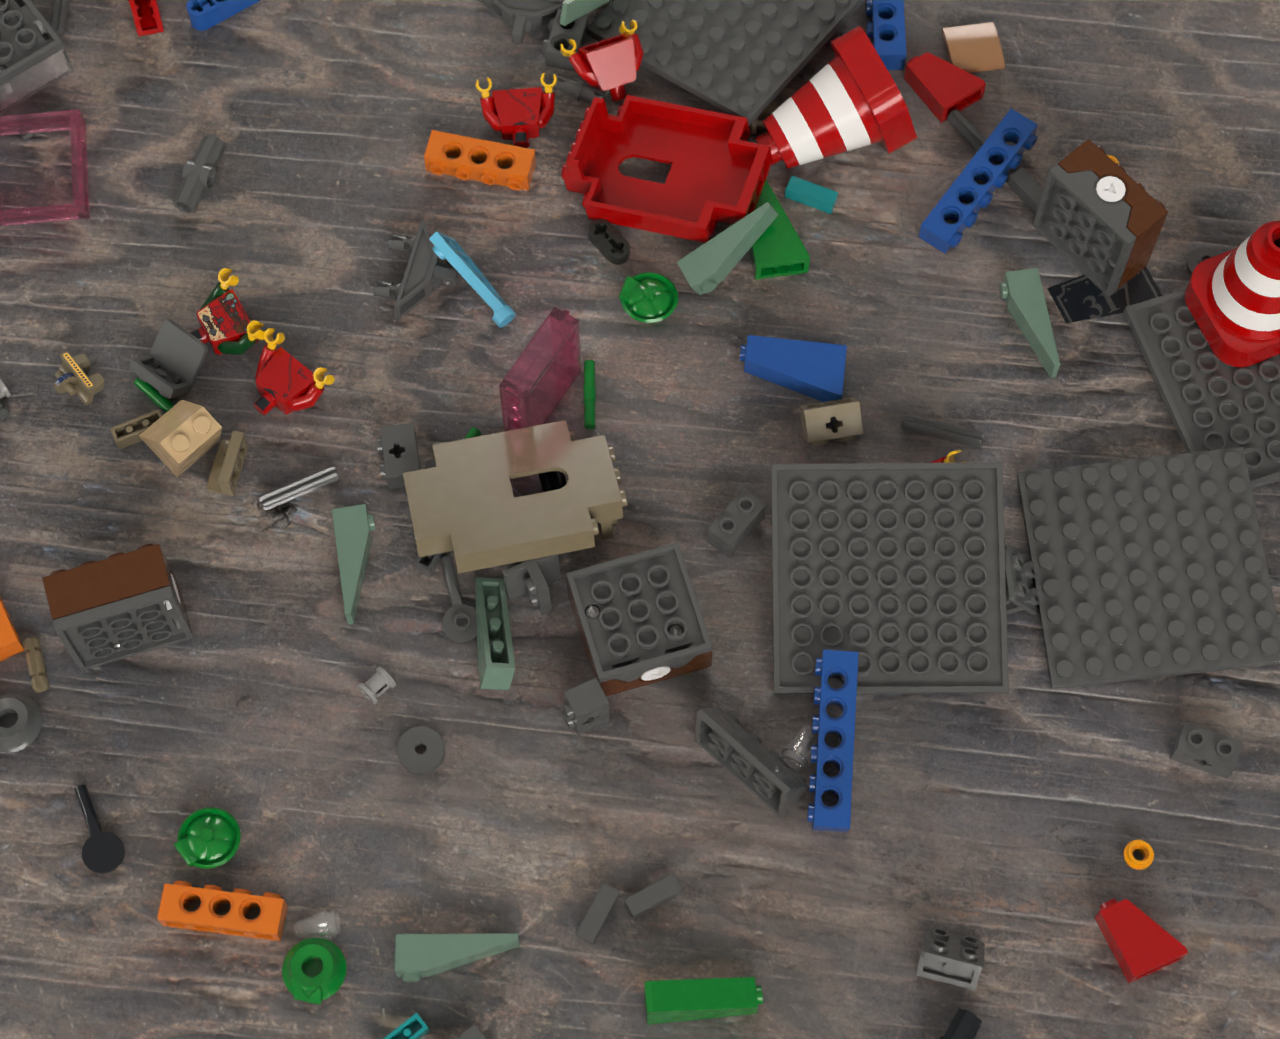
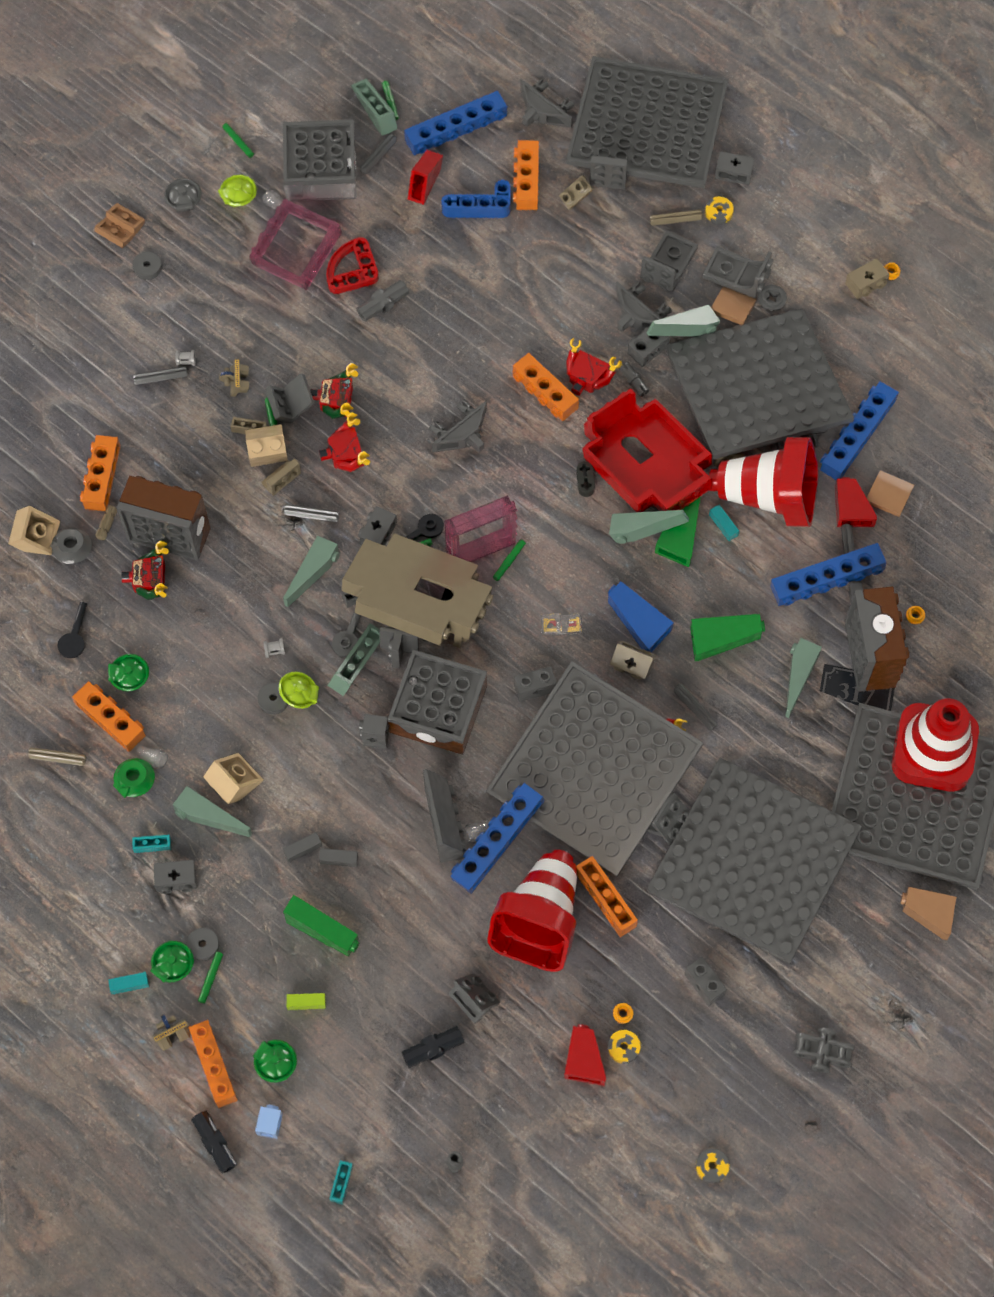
camera: 35 degrees right, 0 degrees up
(144, 694) = (148, 573): none -> torso
(146, 156) = (361, 273): none -> red beam
(189, 1010) = (57, 756): none -> dark tan axle
(445, 885) = (232, 778): none -> tan slope
(448, 248) = (490, 430): medium azure plate -> none
(449, 718) = (298, 690): none -> lime piece
(460, 413) = (428, 526): none -> black piece
(609, 61) = (659, 373): torso -> none
(648, 297) = (582, 524): green piece -> none
(712, 432) = (561, 625): none -> clear slope
(909, 324) = (724, 633): none -> green slope
(964, 806) = (537, 918): none -> red cone
(1016, 725) = (606, 896): none -> orange brick
(1170, 908) = (620, 1055): none -> yellow piece

